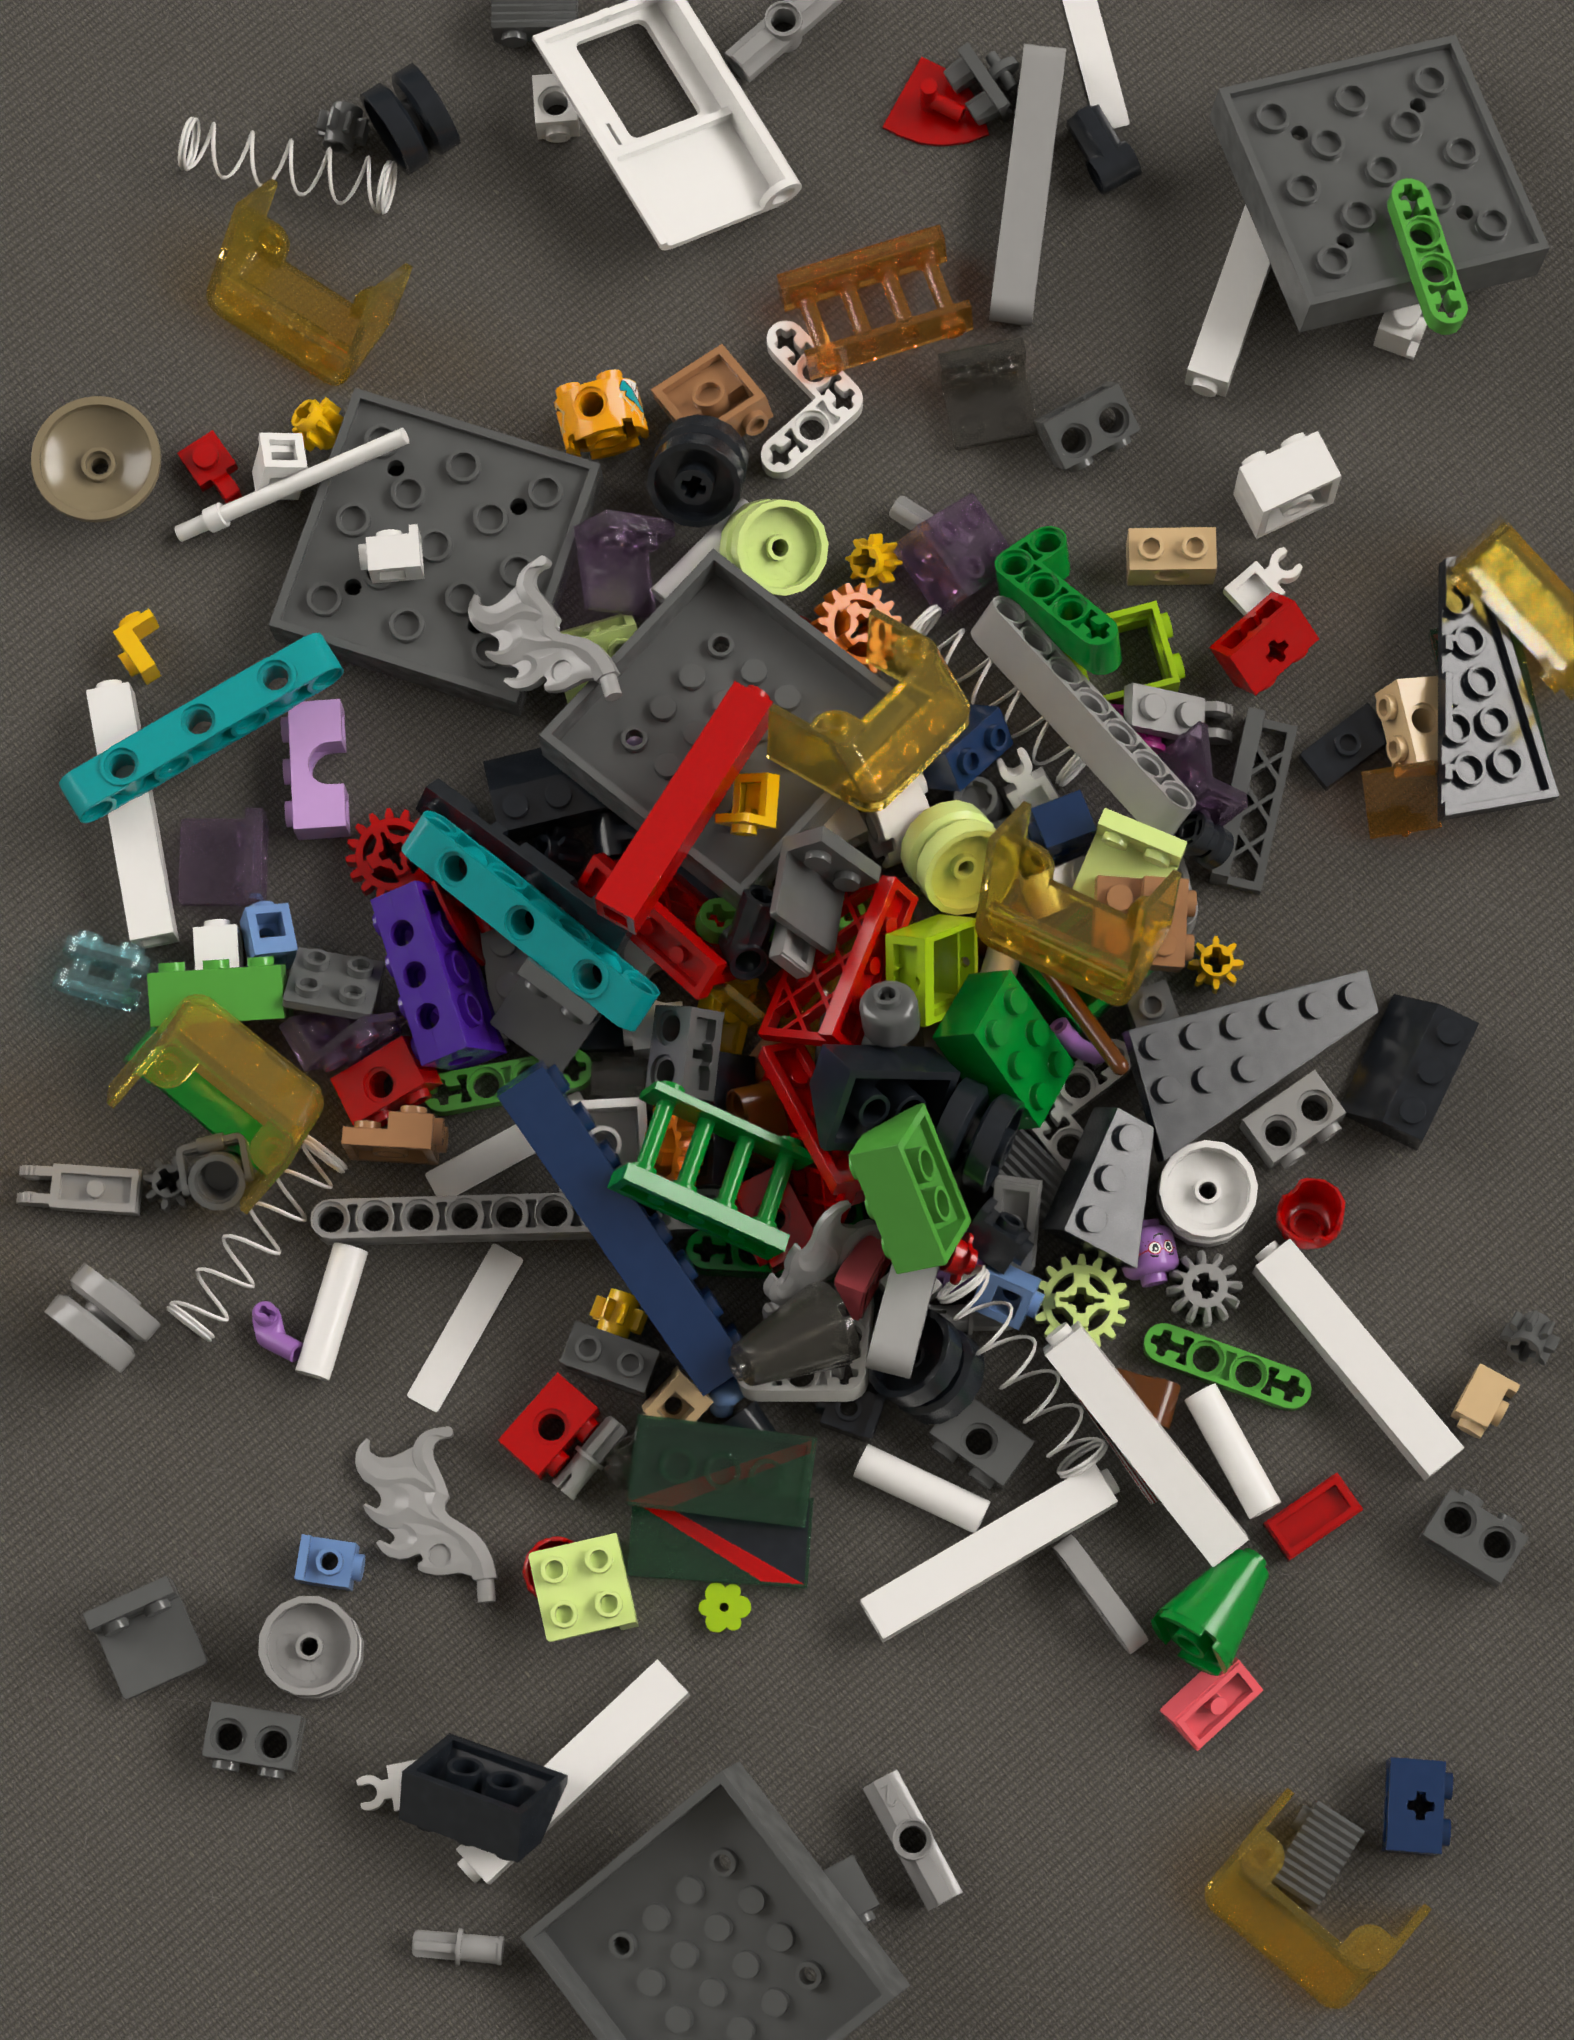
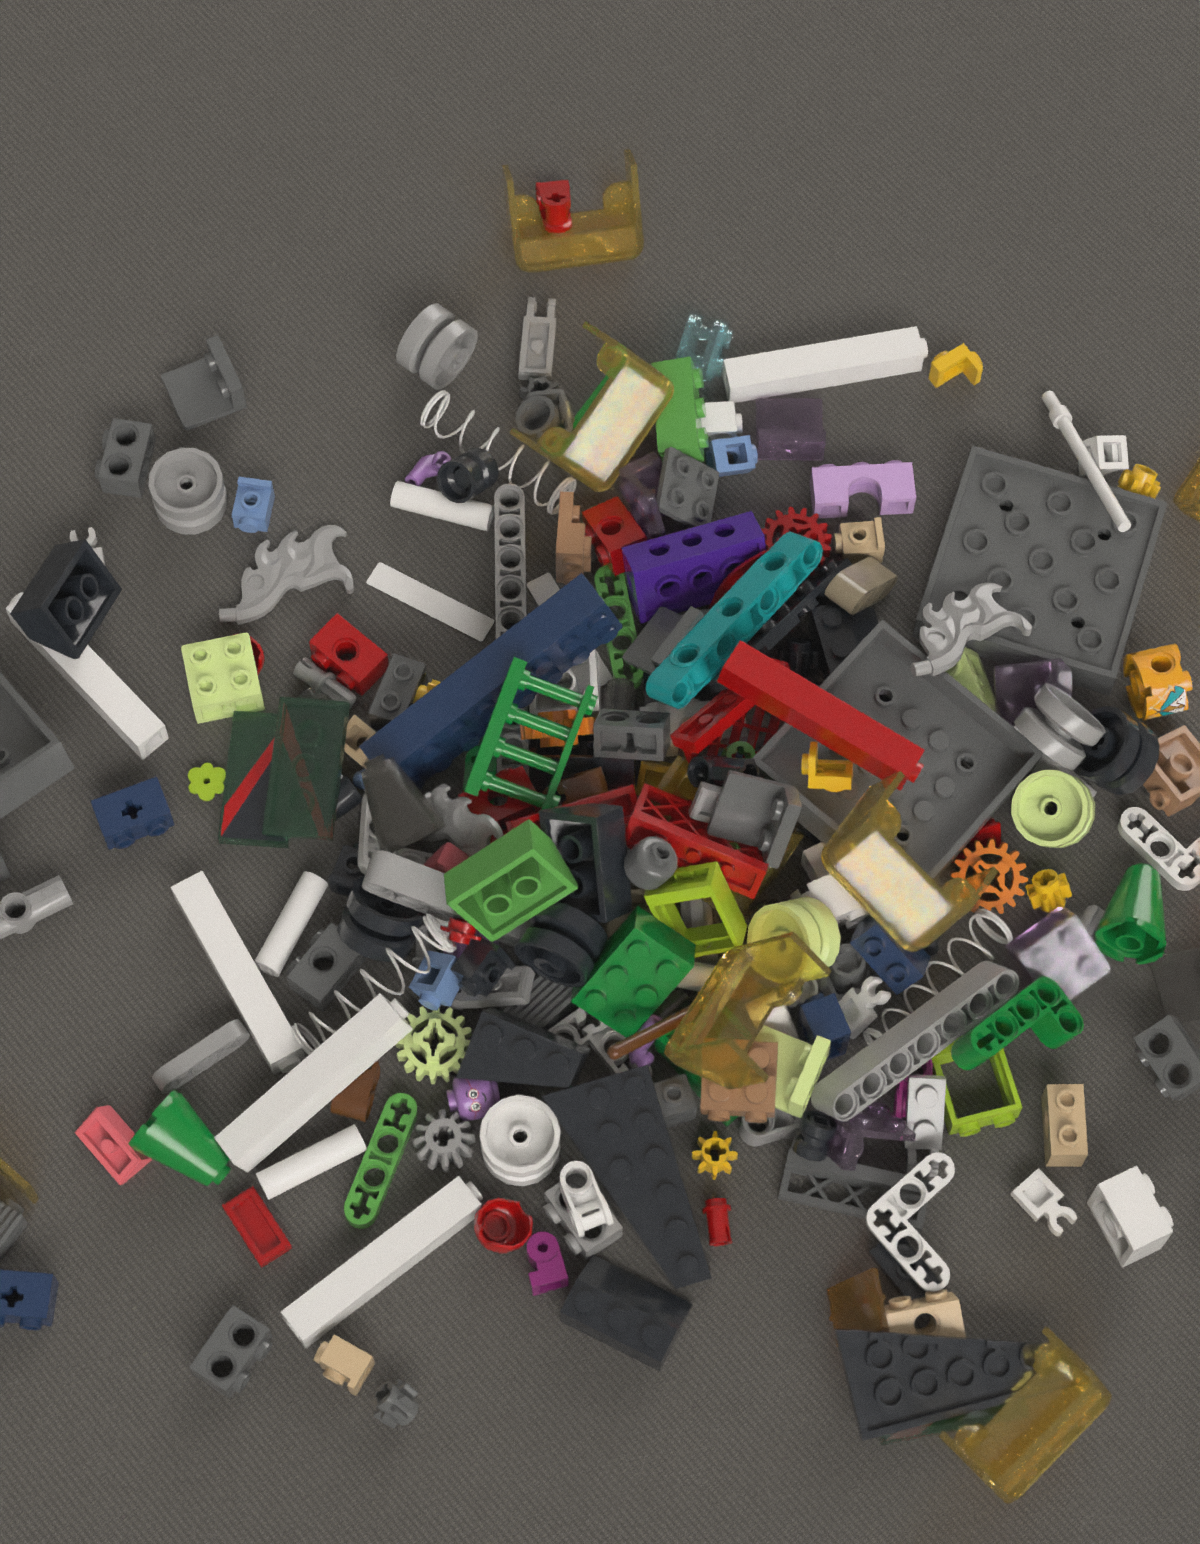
camera: 85 degrees right, 10 degrees down
(90, 434) = (1104, 316): dark tan dish -> none
(171, 747) = (899, 418): teal beam -> none
(211, 465) = (1102, 415): red plate -> none
(299, 1272) = (467, 475): none -> black wheel
(393, 556) = (1029, 526): white brick -> none
(393, 756) = (860, 540): none -> tan brick
(467, 769) = (861, 585): none -> dark tan beam
(681, 527) = (1059, 726): none -> light grey wheel
(772, 1725) = (115, 809): none -> dark blue brick
(906, 459) = (1134, 918): none -> green cone
(1264, 643) = (1008, 1202): red brick -> none
(1291, 742) = (902, 1212): none -> white beam
(1295, 962) = (718, 1221): none -> red pin
(1295, 1108) = (584, 1205): none -> white piece
(1354, 1161) = (546, 1258): none -> magenta leg

